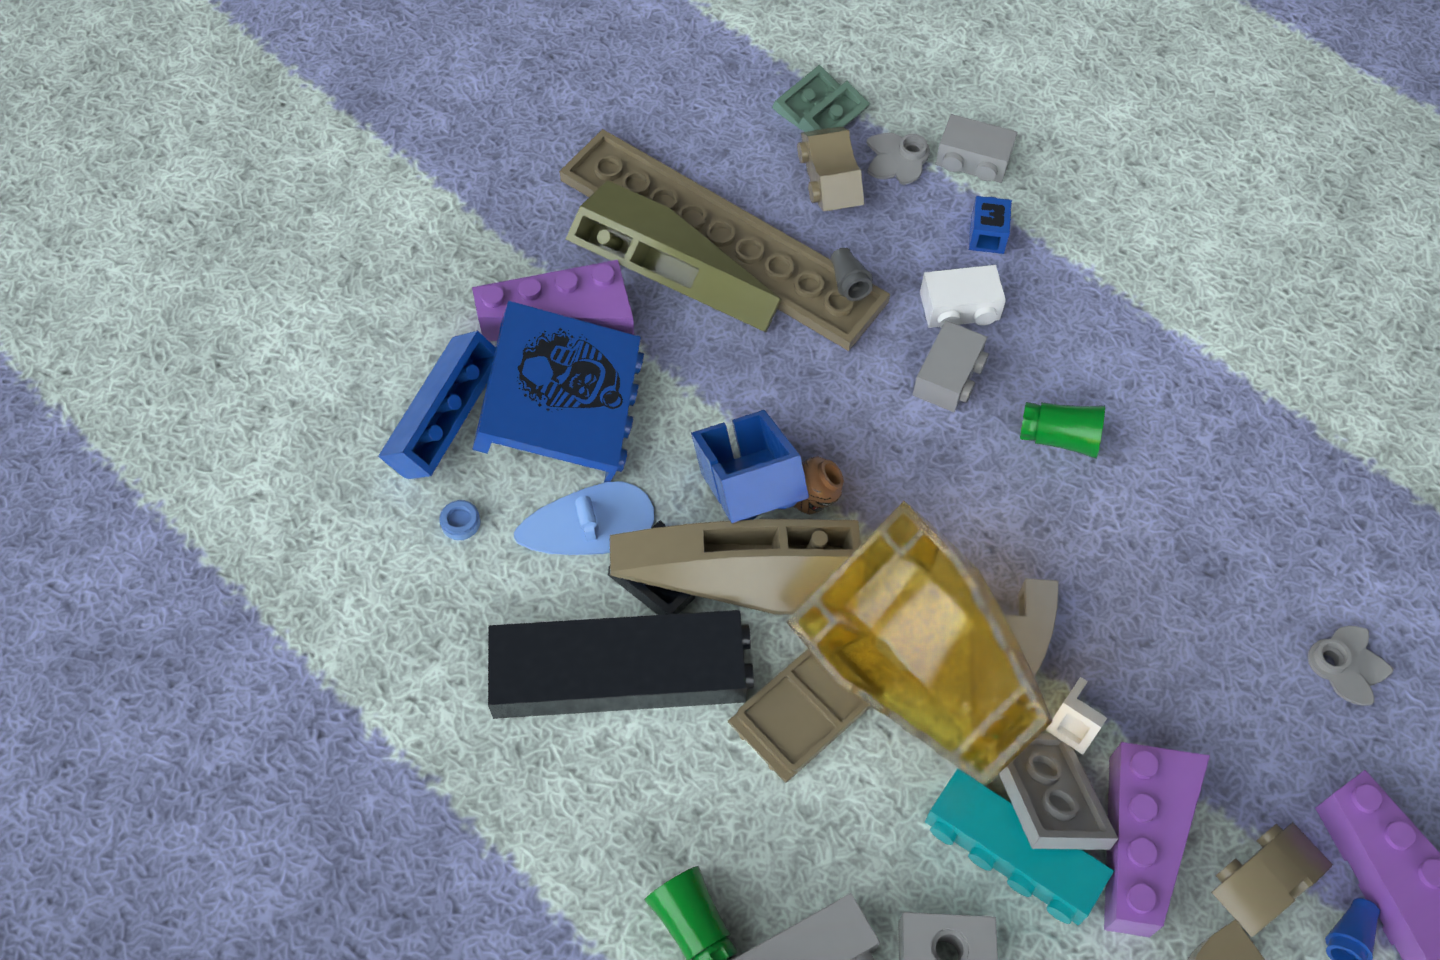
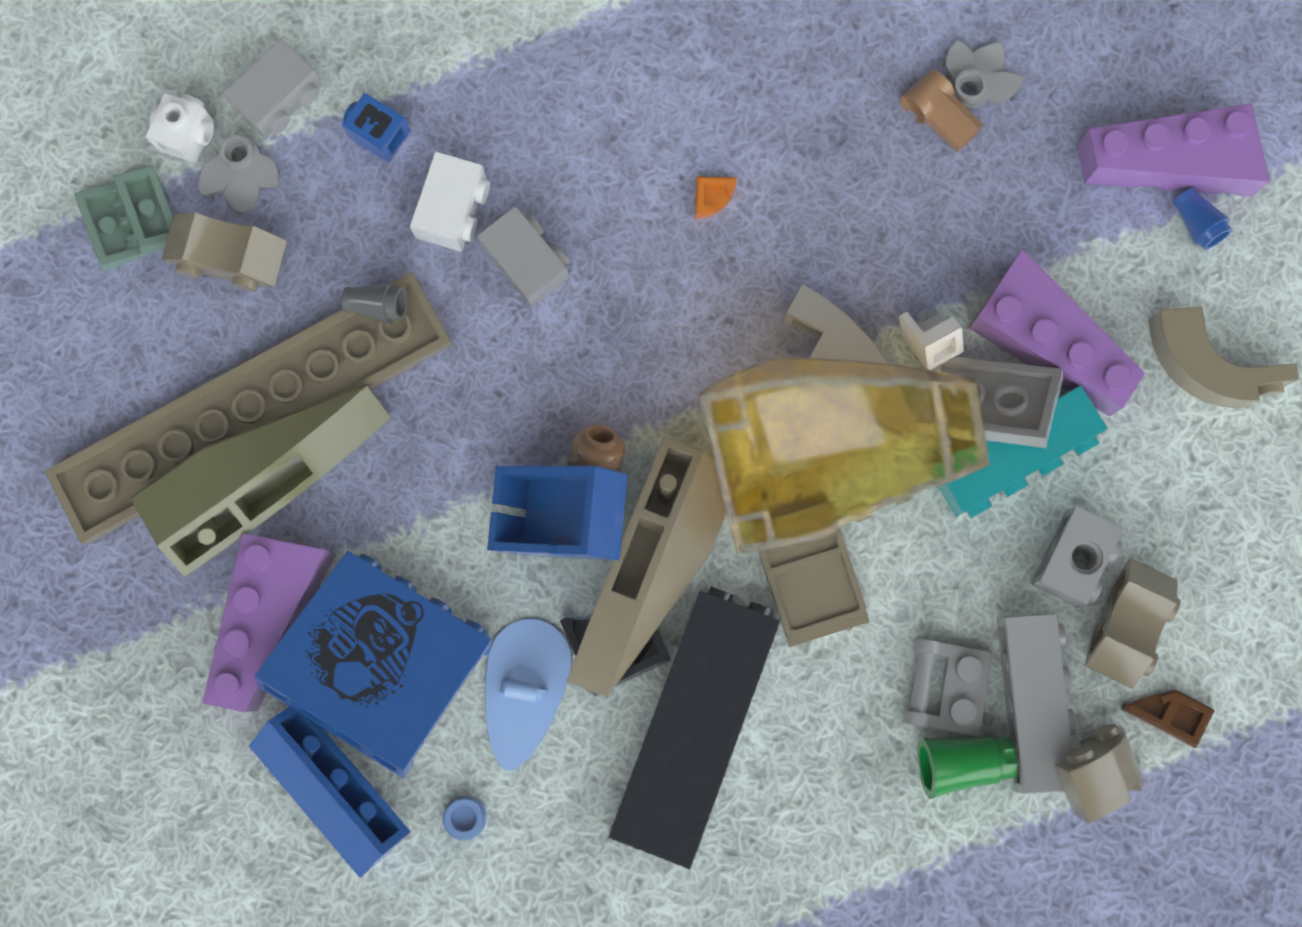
camera: 60 degrees left, 20 degrees up
(763, 894) = (961, 691): none -> light grey plate
(909, 103) = (180, 127): none -> white brick
(1064, 426) = (642, 185): green plant -> none
(1093, 488) = (713, 194): none -> orange tile
(1270, 878) = (1133, 252): dark tan brick -> none
(1293, 640) = (935, 104): none -> medium nougat piece

